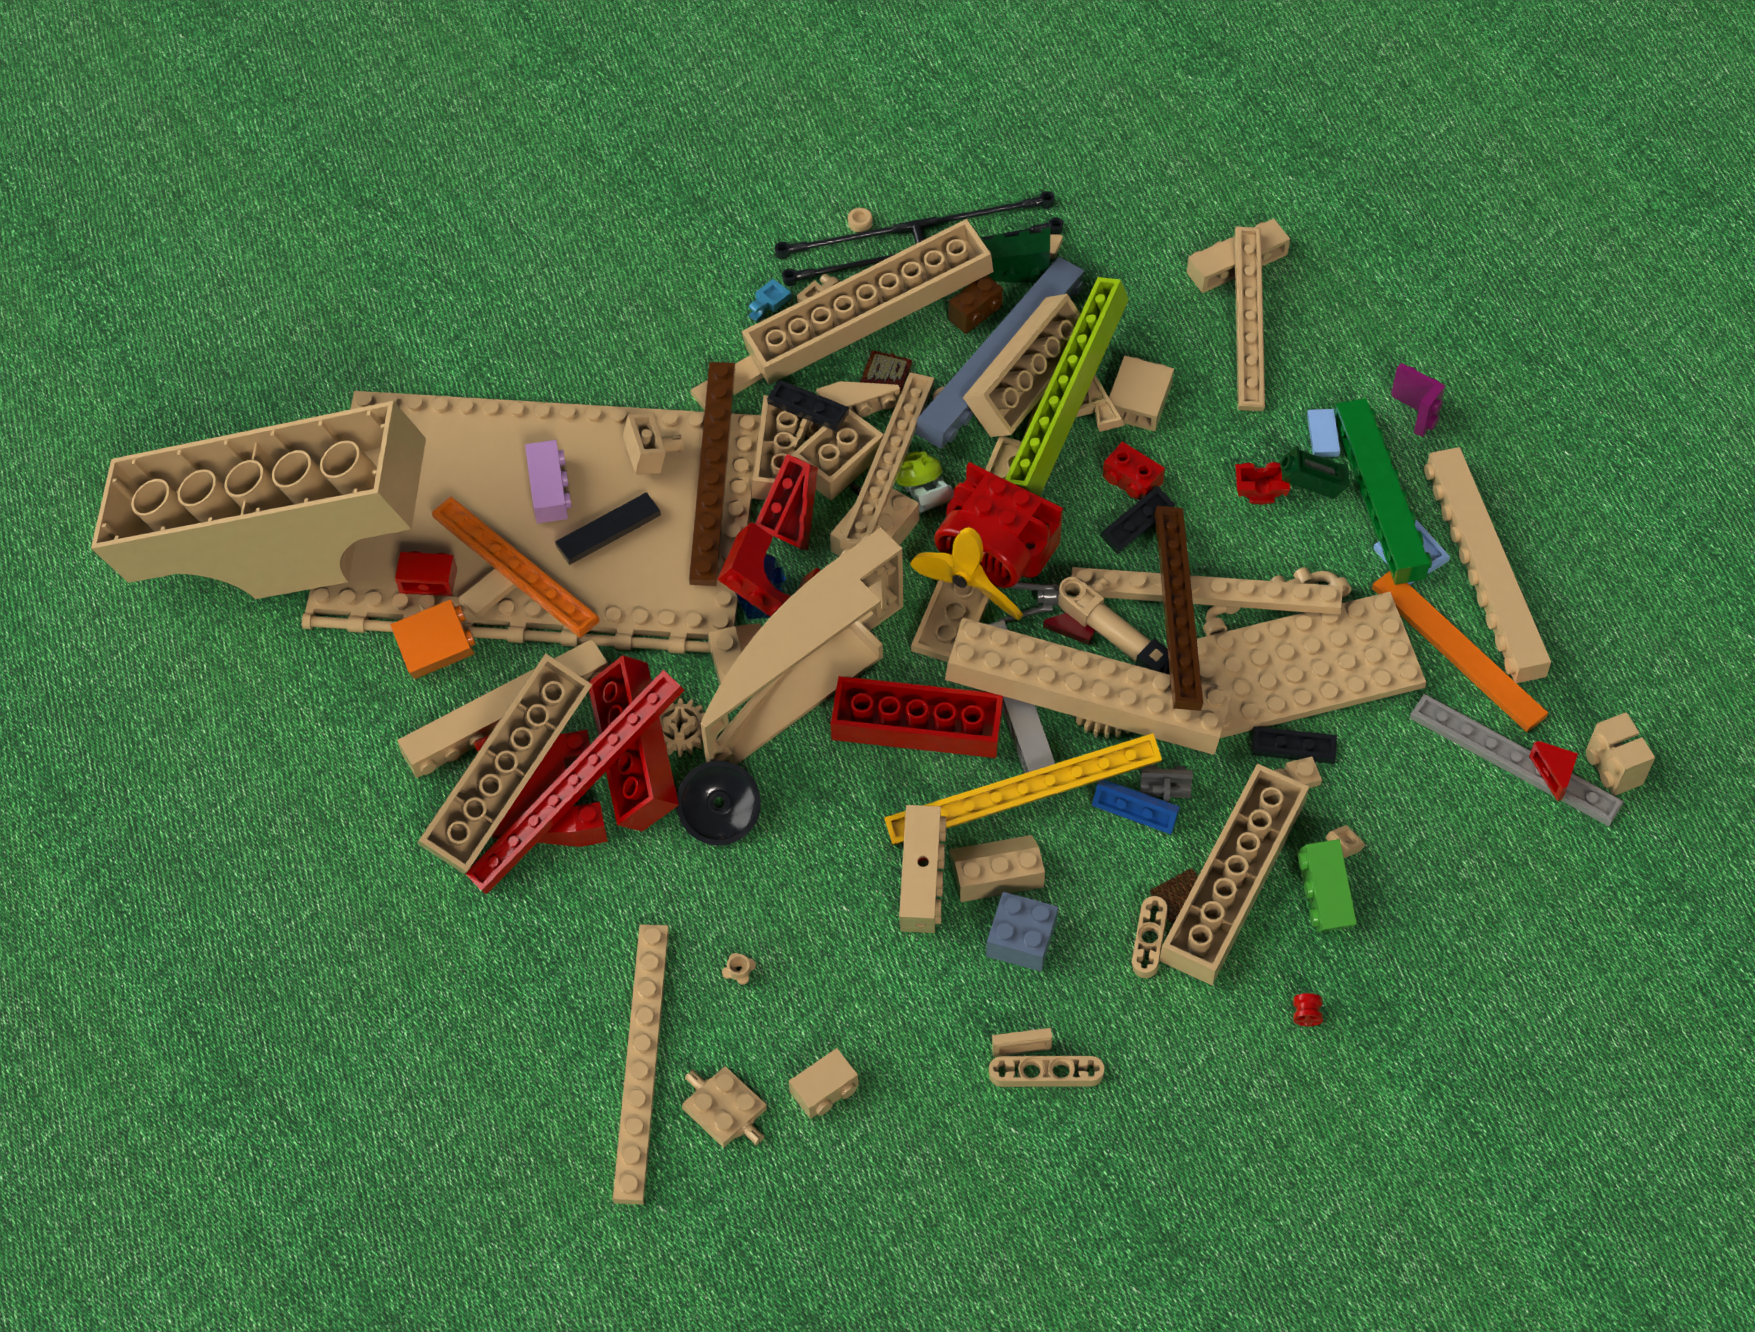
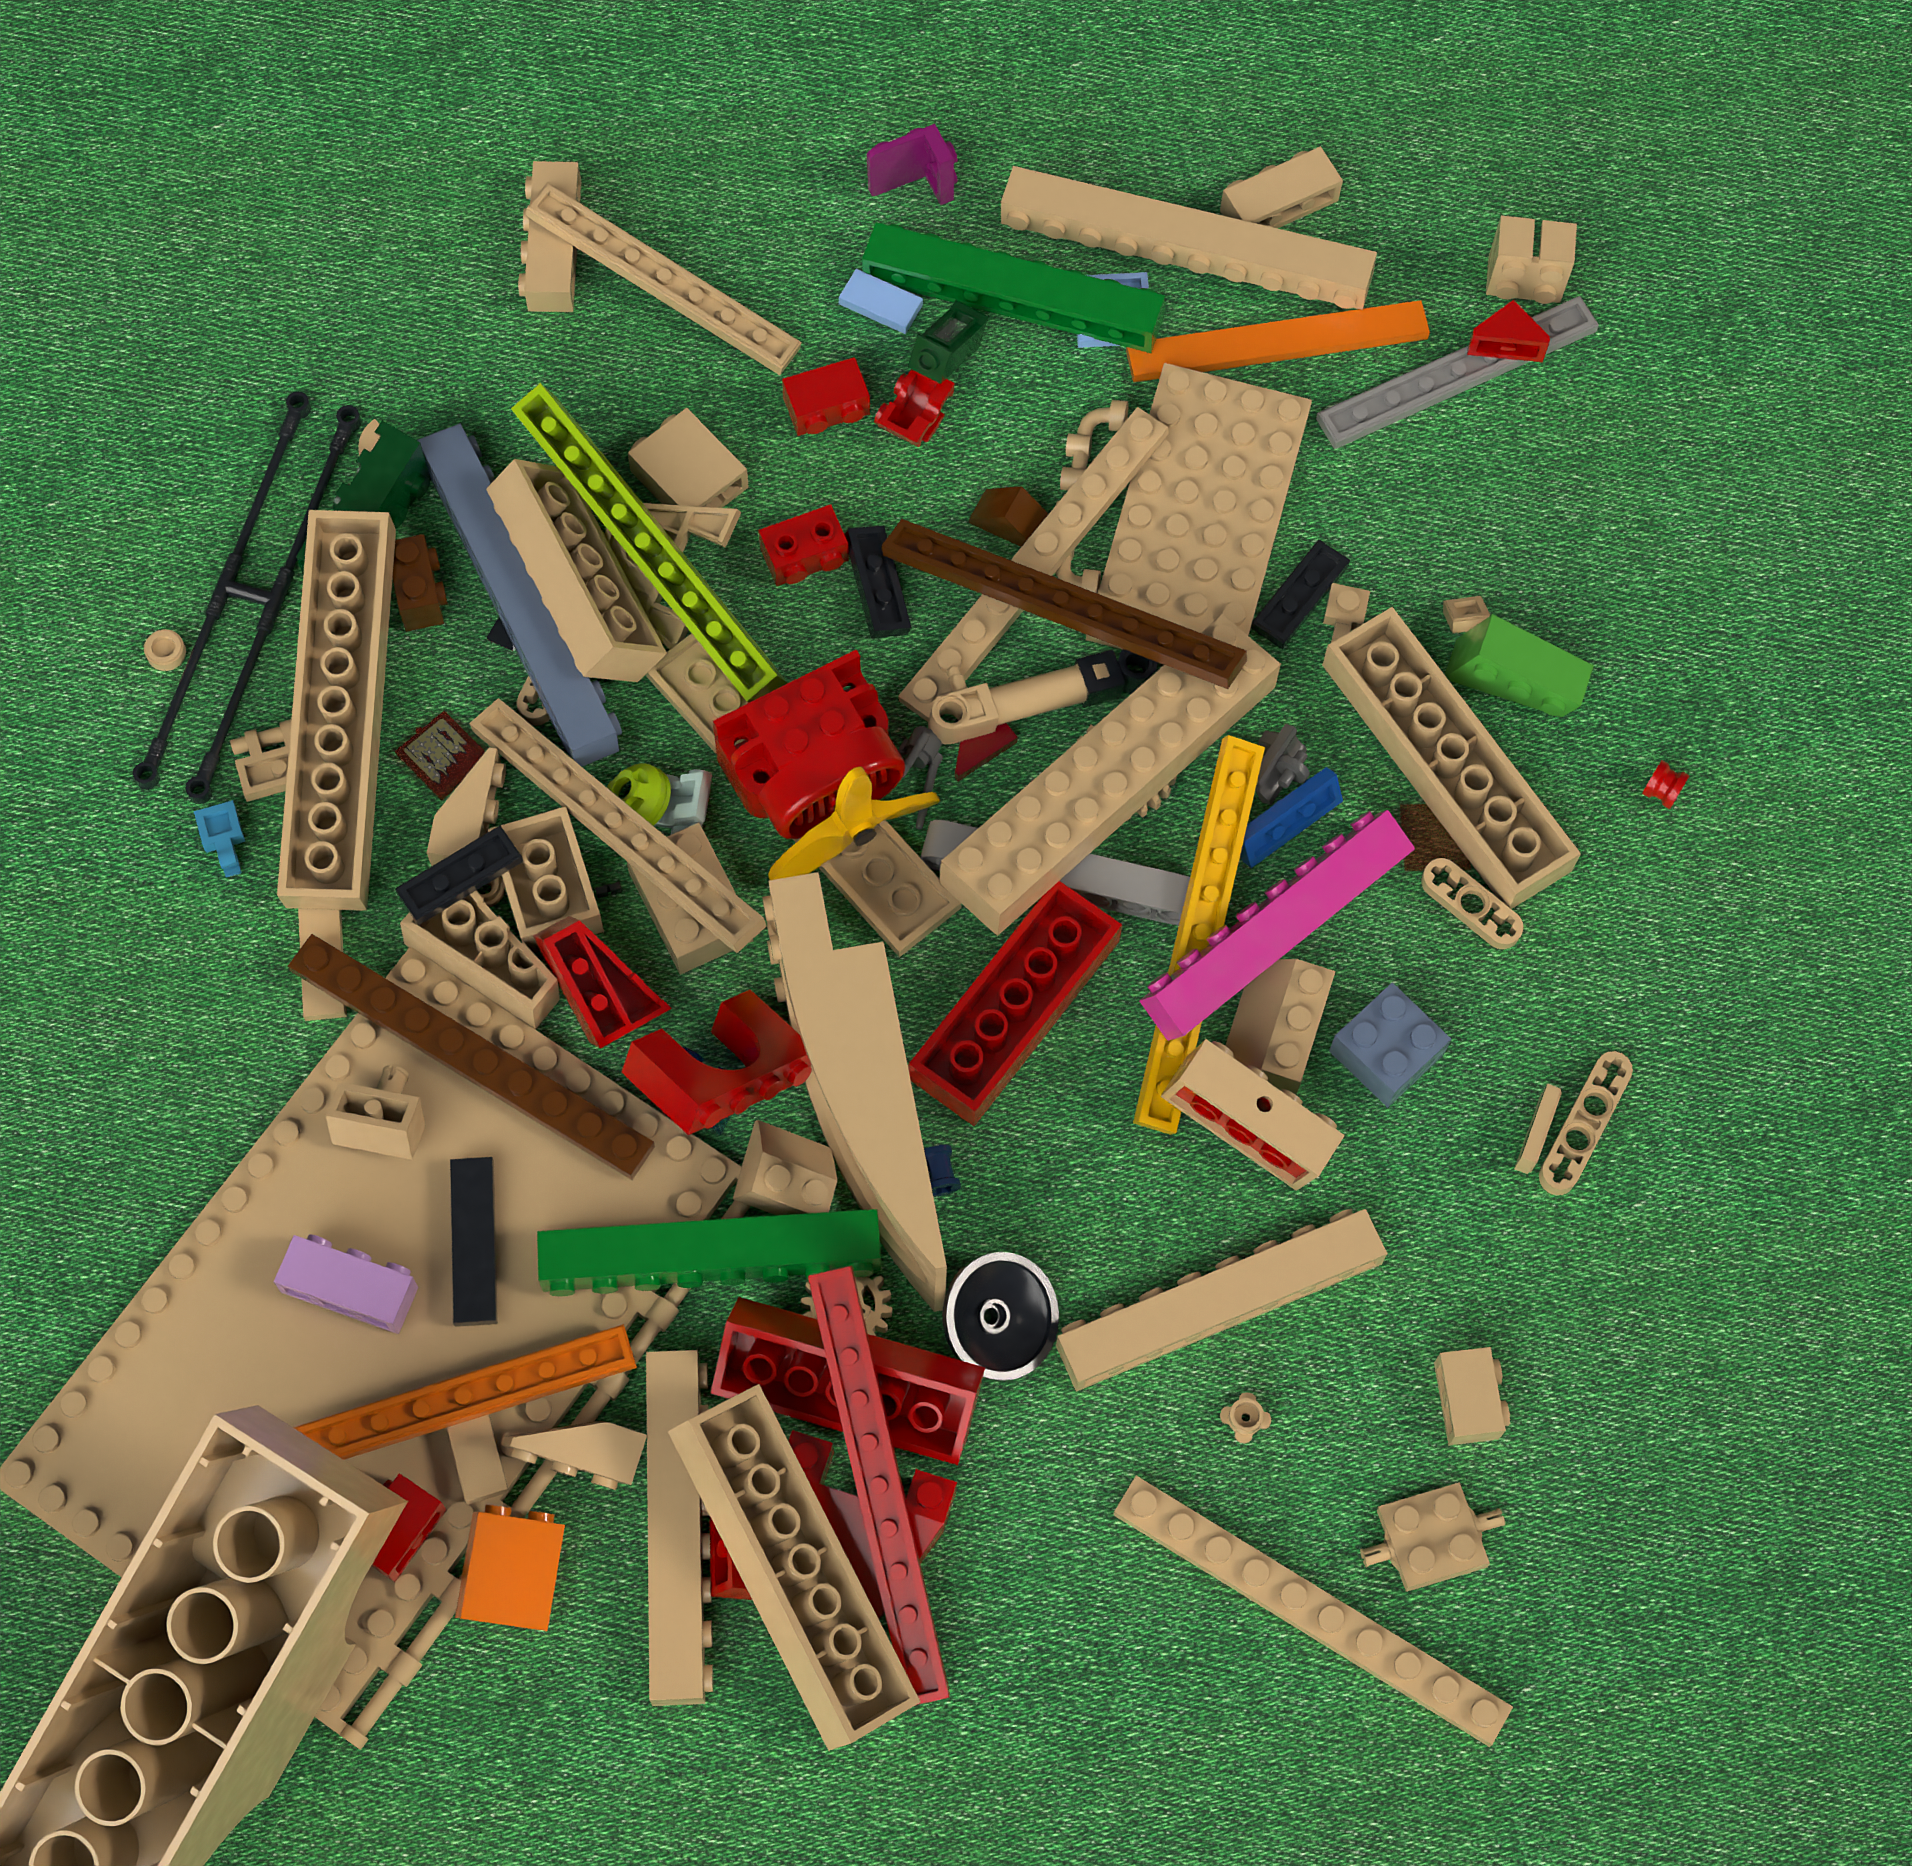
camera: 65 degrees left, 10 degrees up
(522, 642) = (591, 1447): none -> tan slope
(661, 630) = (707, 1251): none -> green brick
(791, 732) = (940, 1170): none -> dark blue bush
(804, 918) = (1220, 1298): none -> tan brick
(1055, 826) = (1276, 925): none -> dark pink brick
(1230, 562) = (1008, 514): none -> reddish brown slope
(1235, 433) = (826, 397): none -> red brick
(1561, 599) = (1284, 191): none -> tan brick

